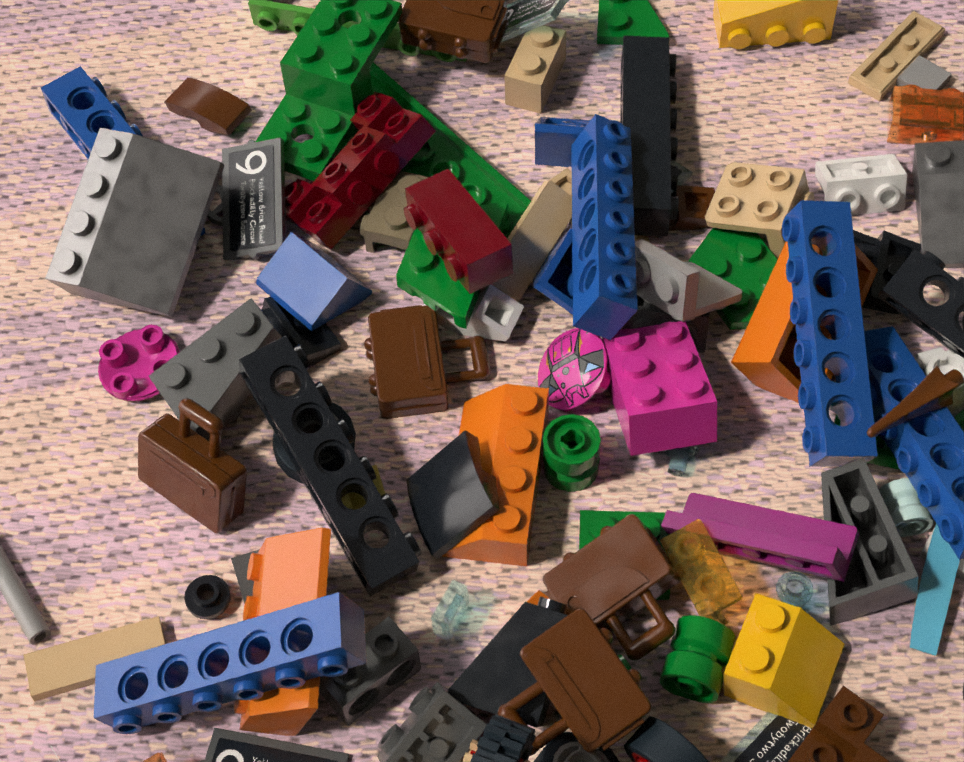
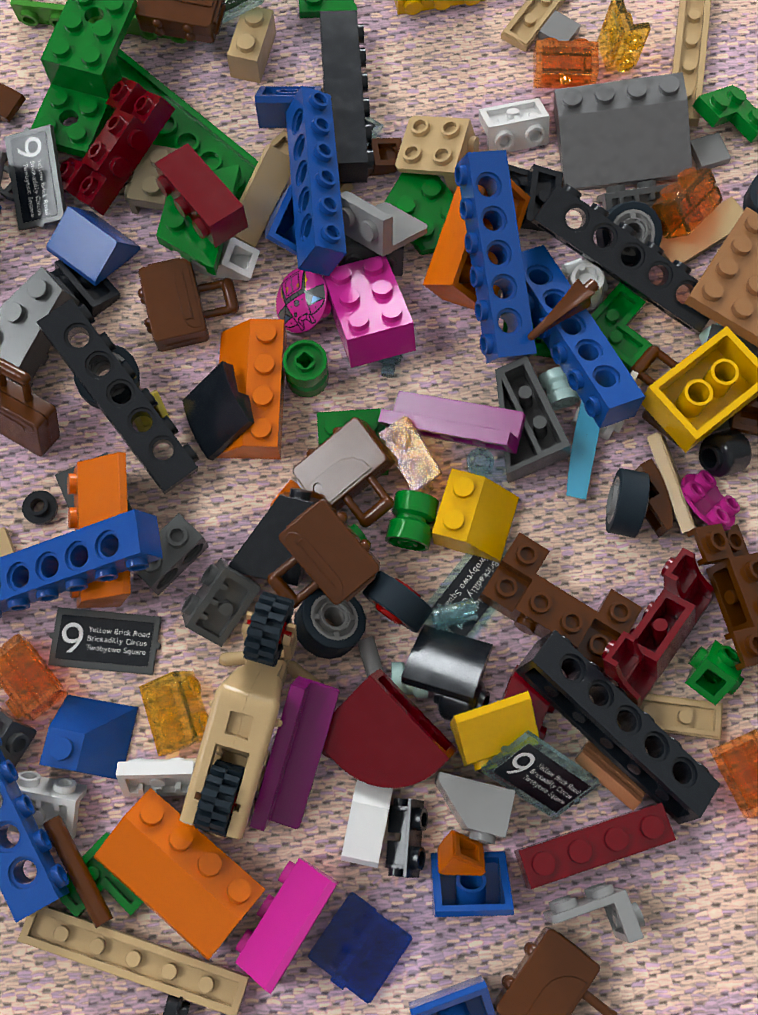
camera: 10 degrees left, 15 degrees up
(450, 610) = (225, 501): clear light blue tile -> none

